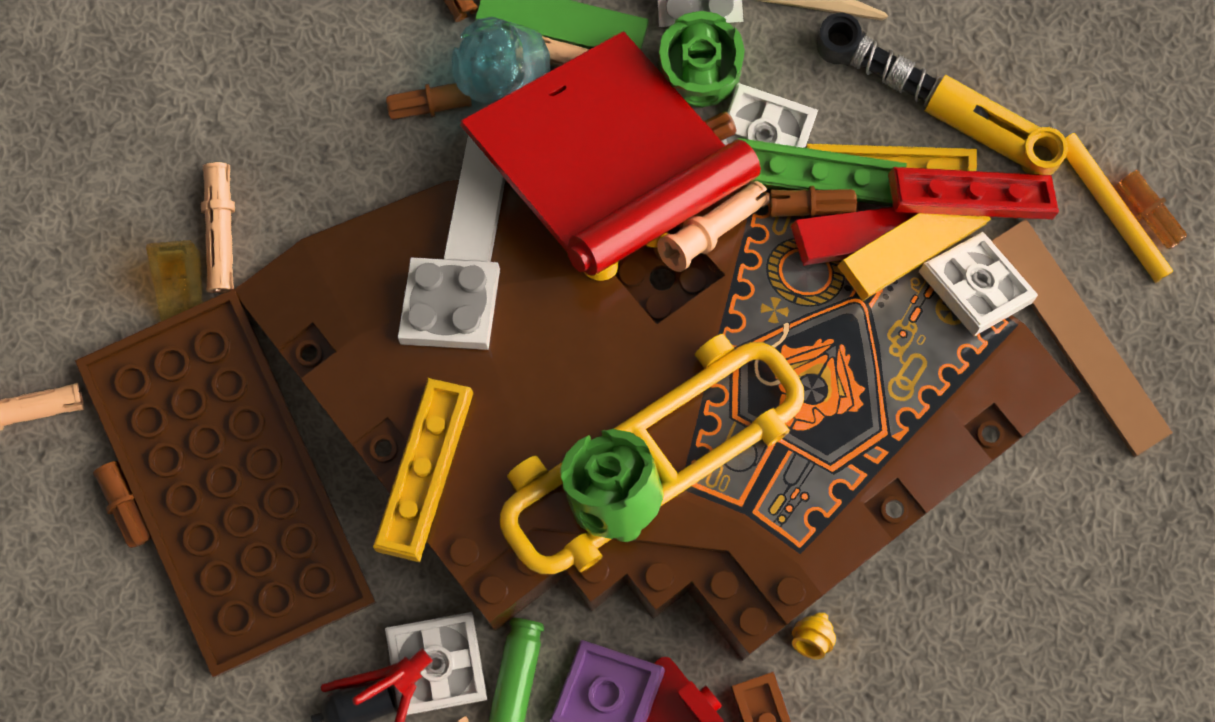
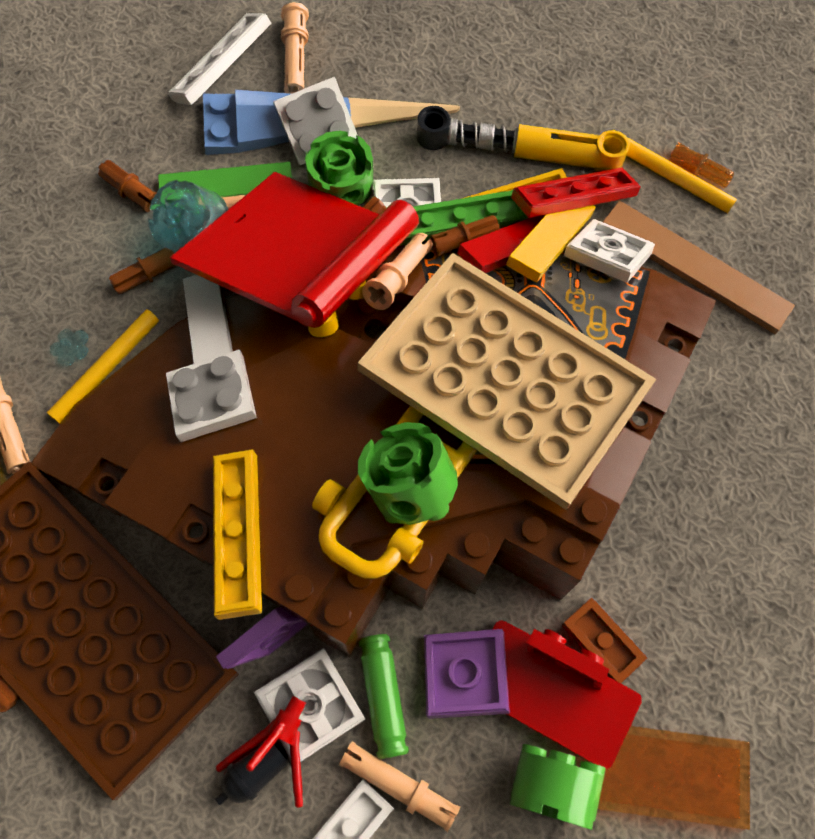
camera: 25 degrees left, 10 degrees down
(317, 164) = (70, 345): none -> clear light blue plant
(347, 202) = (104, 365): none -> yellow piece
(409, 580) = (261, 638): none -> medium lavender tile
(761, 415) = (507, 378): none -> tan plate
(814, 636) = (610, 557): yellow plate -> none

